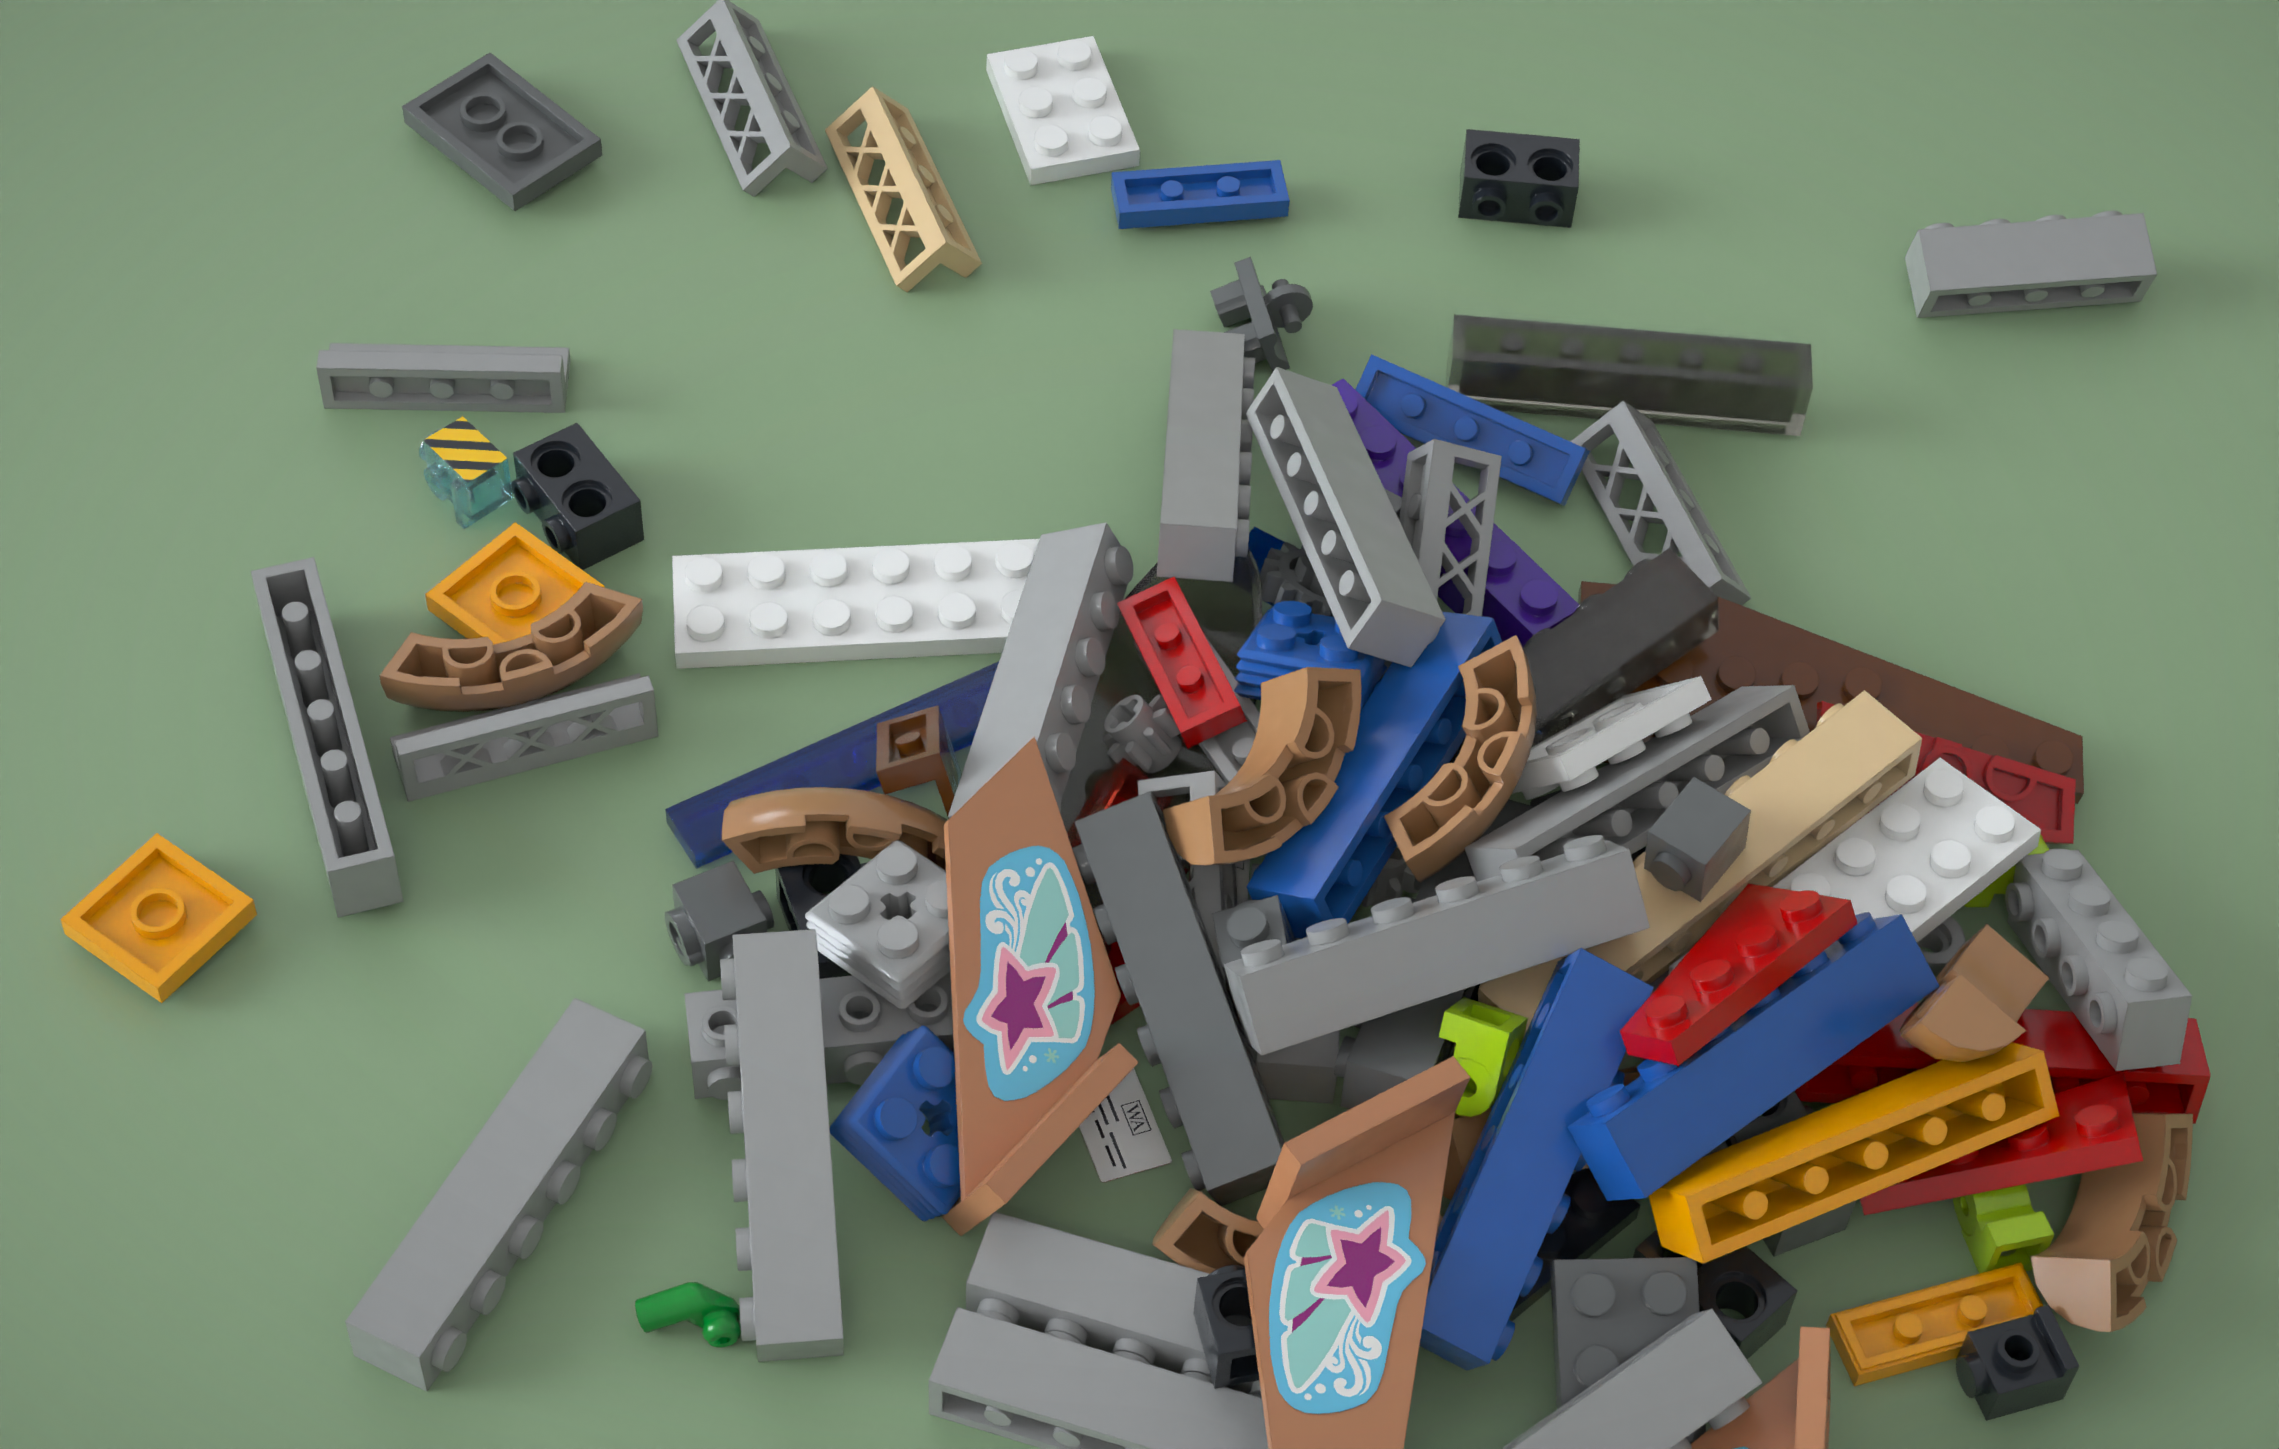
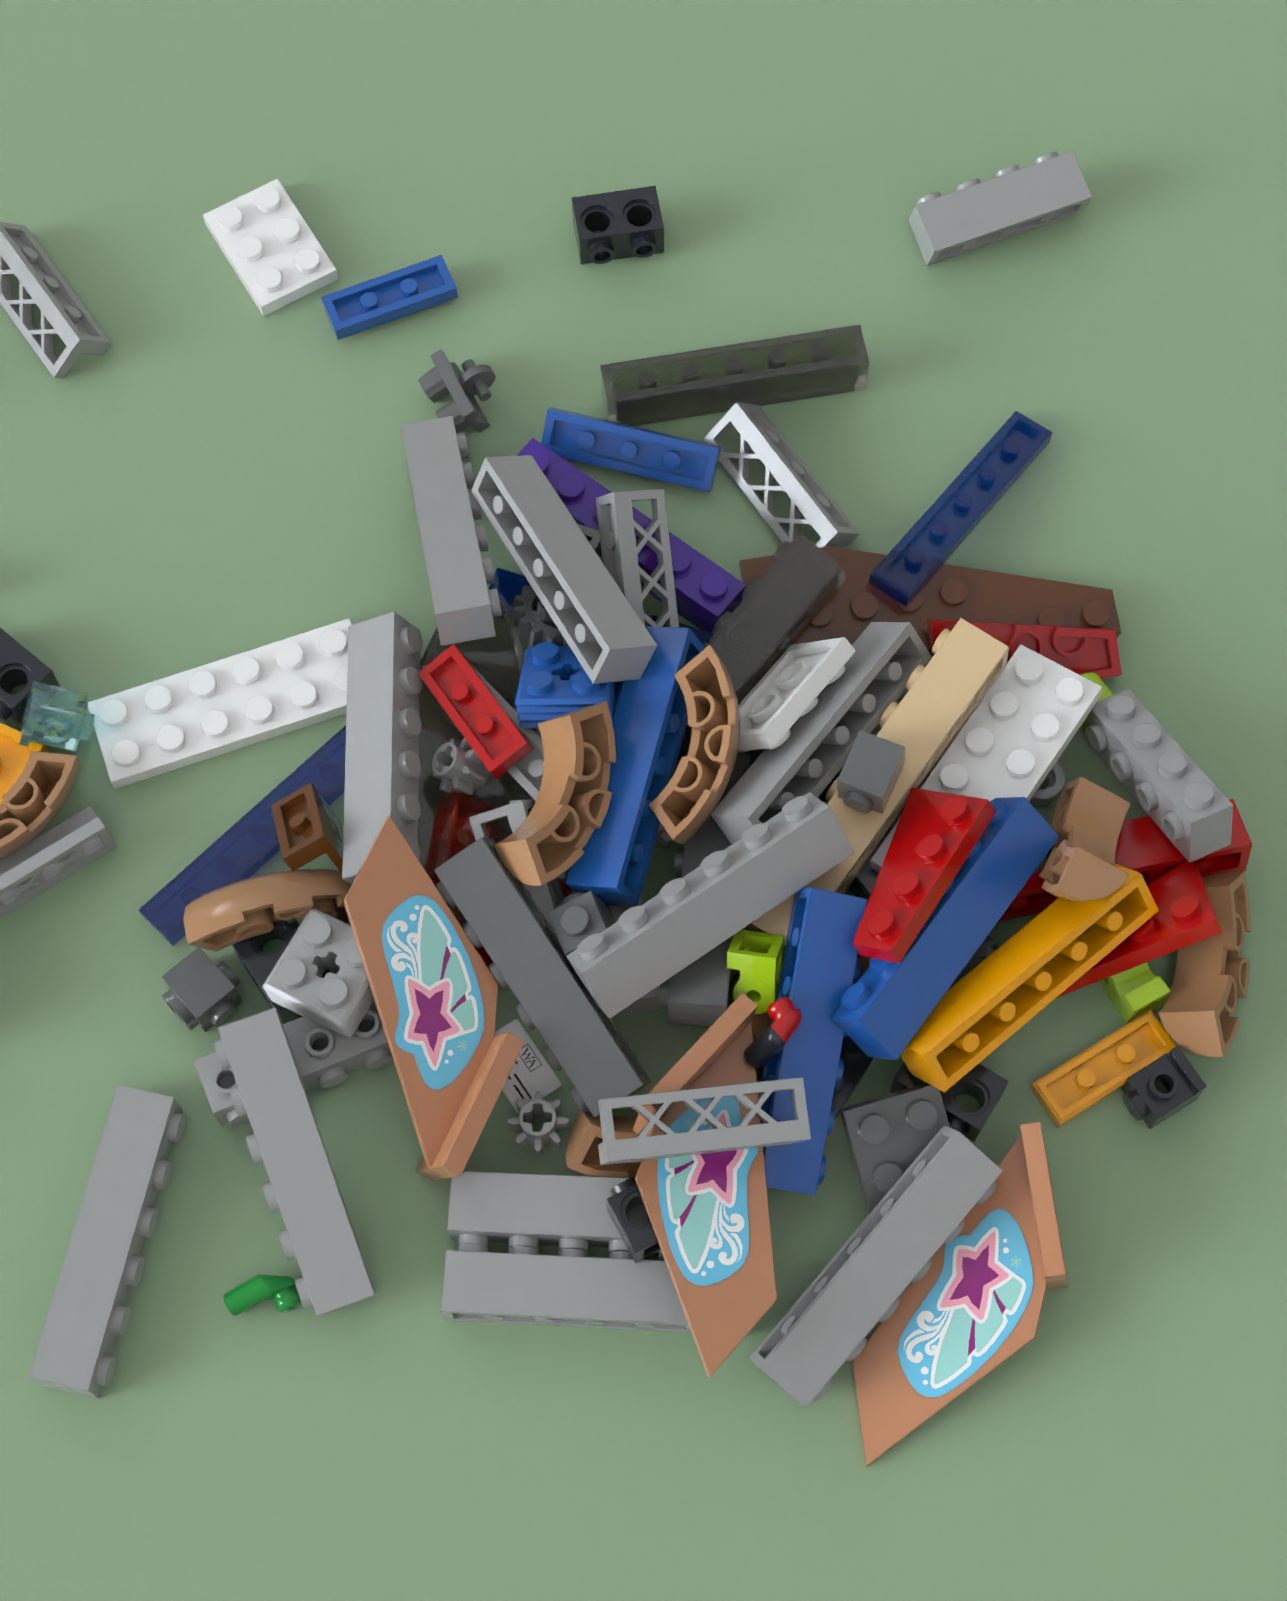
camera: 10 degrees left, 15 degrees up
(630, 539) = (56, 717): none -> clear light blue brick
(886, 1121) = (361, 1126): blue brick -> none
(906, 175) = (174, 338): tan fence -> none
(1130, 1210) = (550, 1128): none -> light grey gear
(1351, 1224) = (703, 1141): none -> light grey fence
(1501, 1110) = (777, 1035): none -> arm
(1894, 592) = (960, 508): none -> clear blue tile

